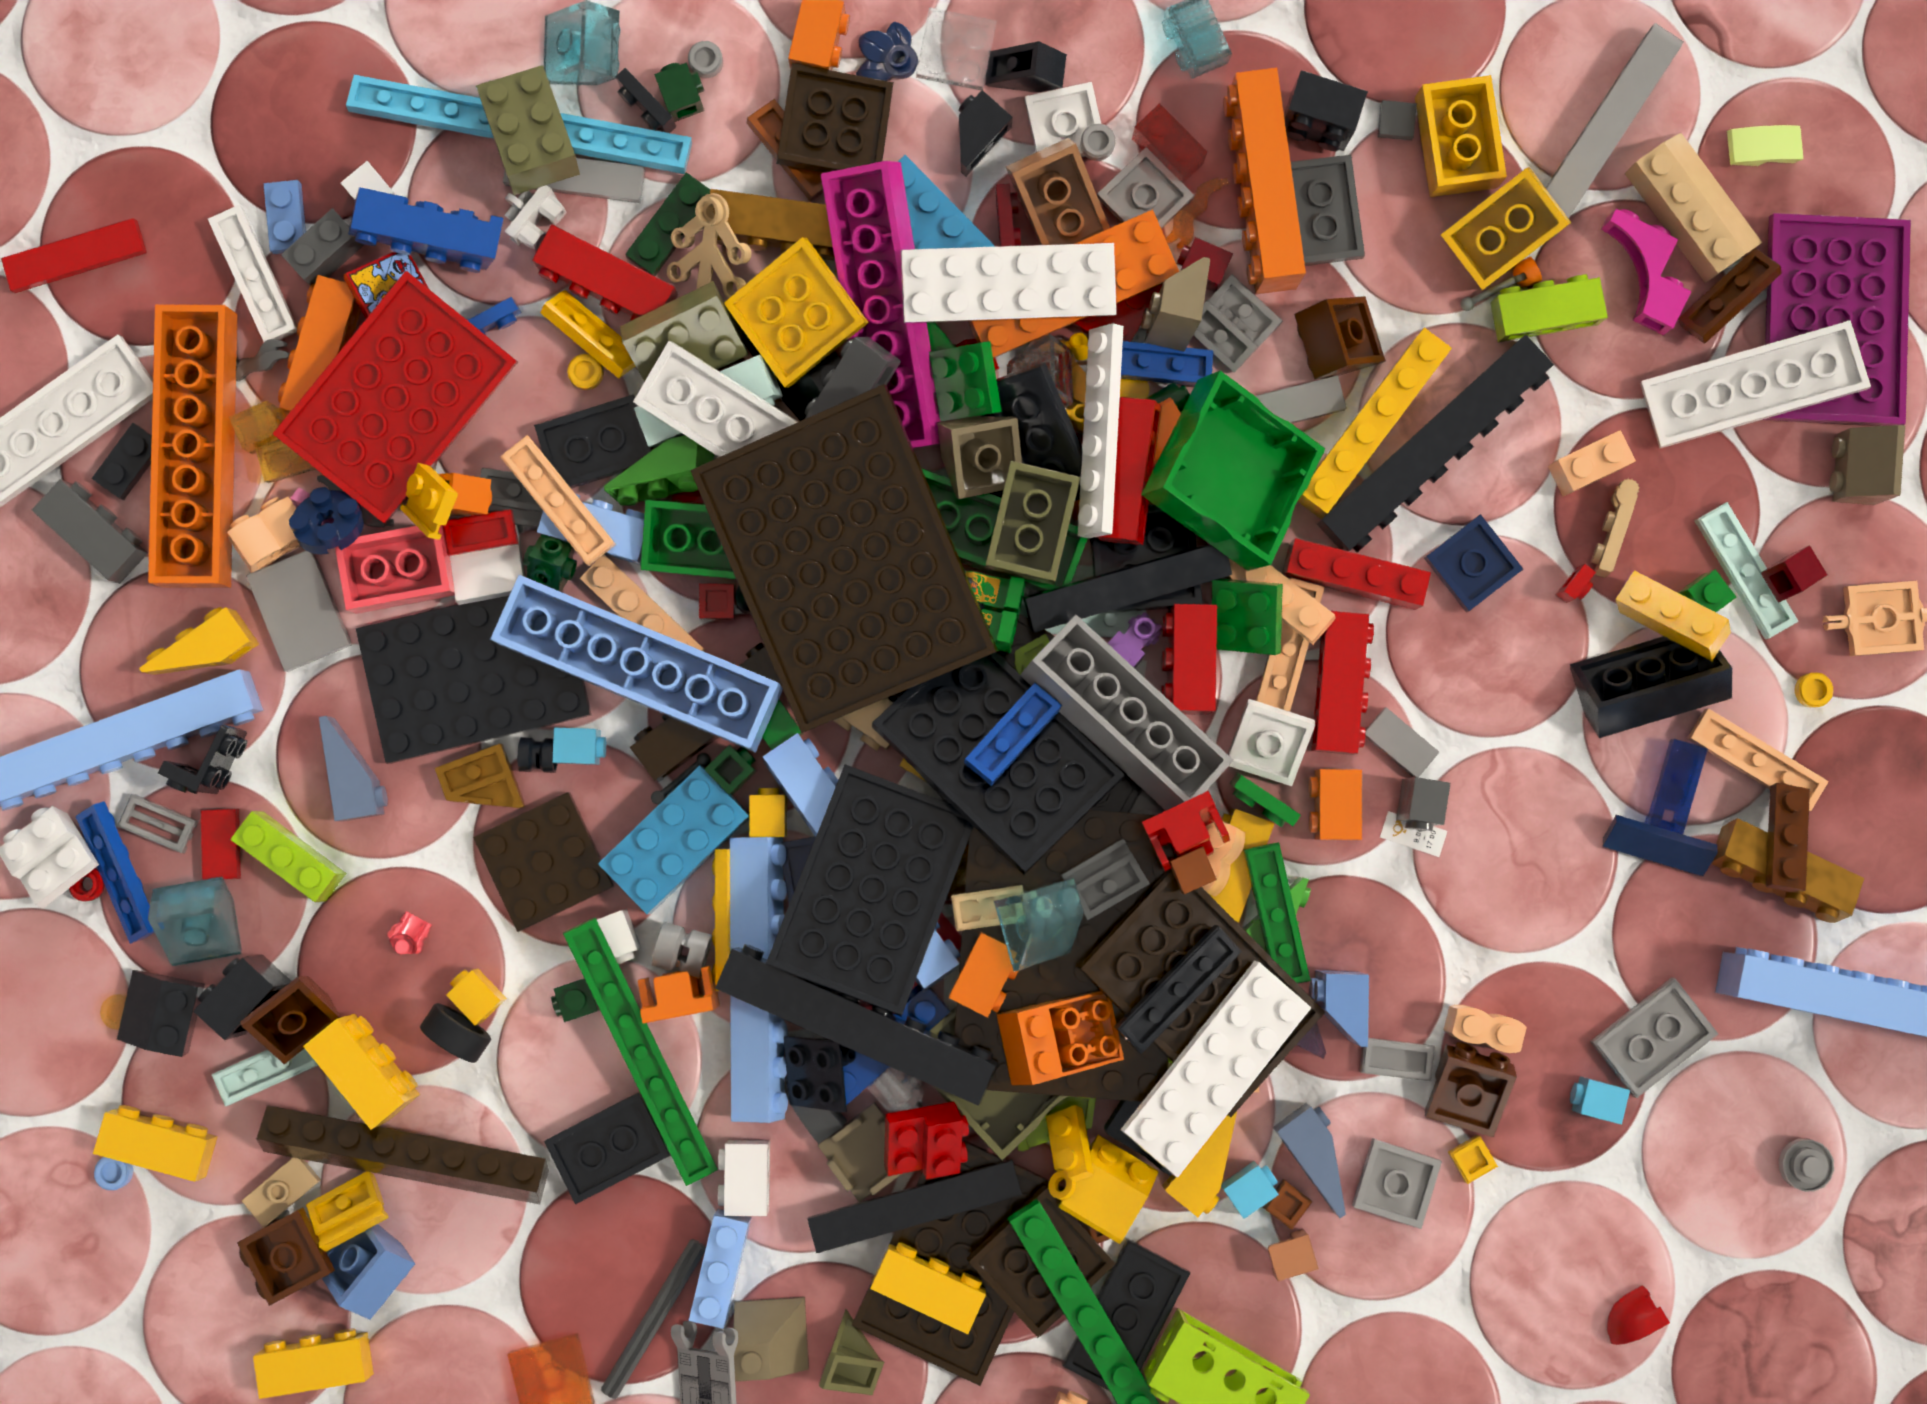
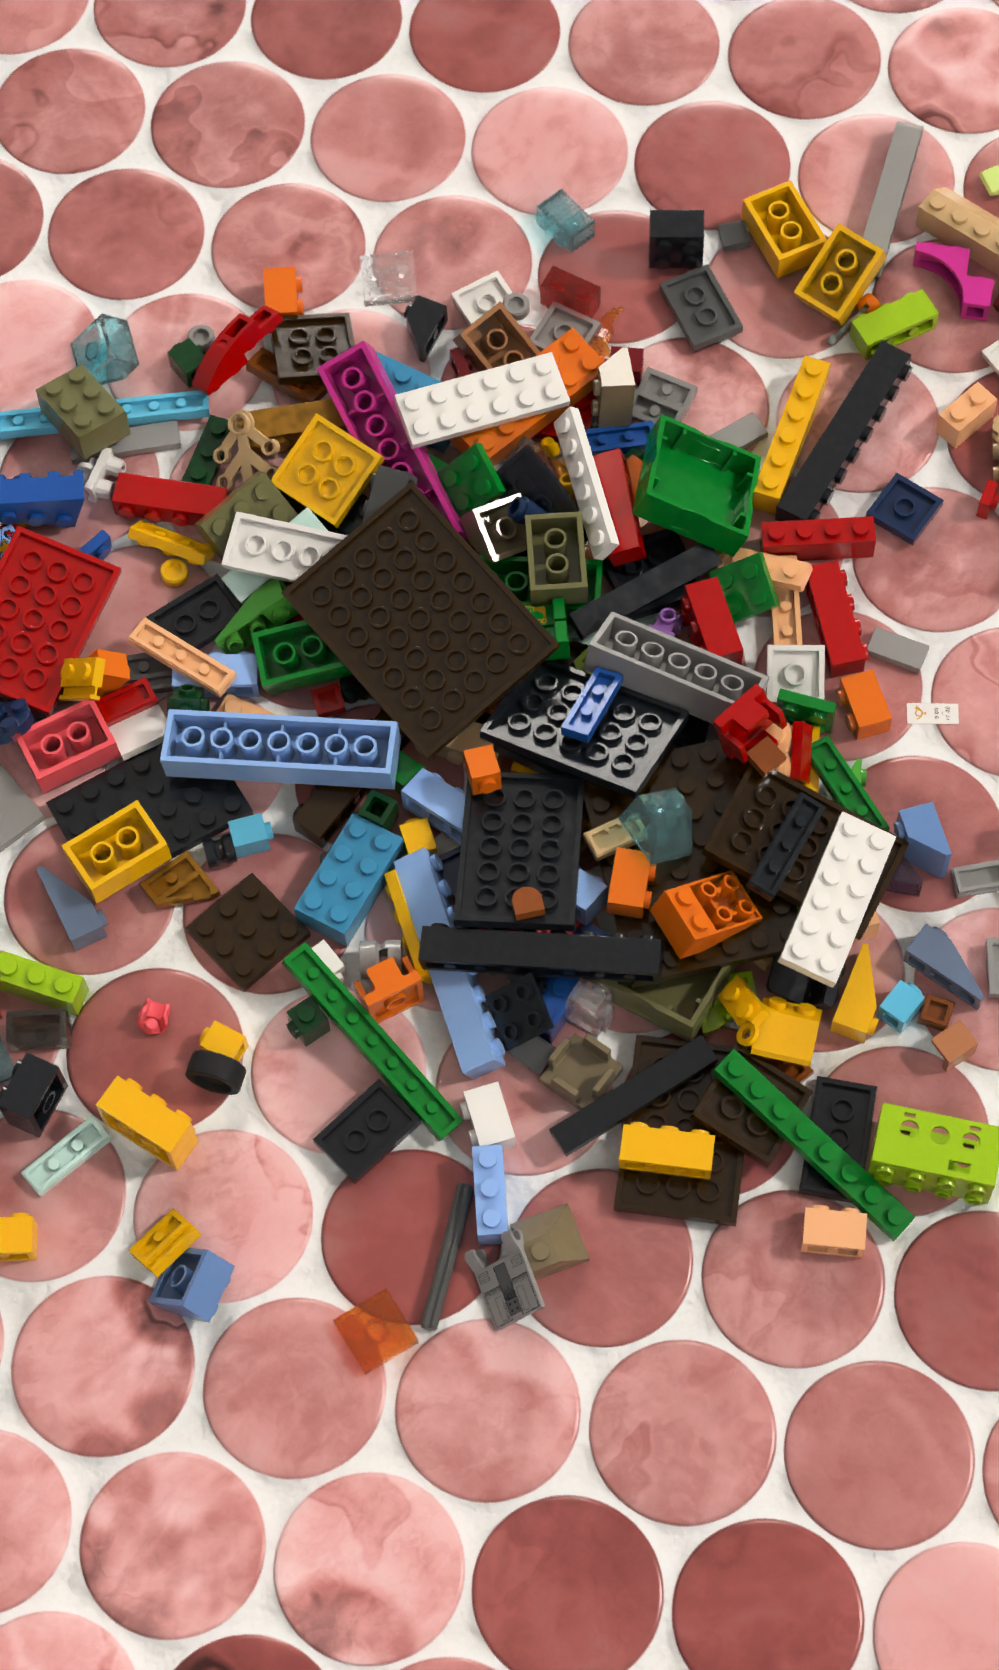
camera: 10 degrees left, 20 degrees down
(273, 912) = (38, 1029): none -> clear smoke panel
(281, 1190) = (104, 1248): tan plate -> none
(285, 1257) = (123, 1292): reddish brown plate -> none
(291, 1018) = (73, 1096): reddish brown slope -> none
(313, 1363) = (170, 1376): yellow brick -> none
(403, 1154) = (199, 1182): dark brown brick -> none
(412, 732) = (117, 851): none -> yellow brick
(635, 93) = (164, 375): black plate -> none
(727, 99) = (228, 350): none -> red slope
(851, 1361) = (623, 1241): olive slope -> none
(855, 972) = (527, 903): none -> dark orange tile
(859, 777) = (482, 769): none -> orange brick
(884, 50) = (339, 296): dark blue plate -> none
(925, 1141) = (625, 1031): red plate -> none
(1015, 446) = (523, 506): none -> dark blue cone
(1026, 68) = (446, 274): black slope -> none
(1106, 878) = (704, 786): dark grey plate -> none
(1239, 862) = (801, 752): none -> red tile
(1265, 181) = (650, 296): orange brick -> none
(1339, 336) = (743, 385): reddish brown slope -> none
(1423, 803) = (929, 678): dark grey brick -> none

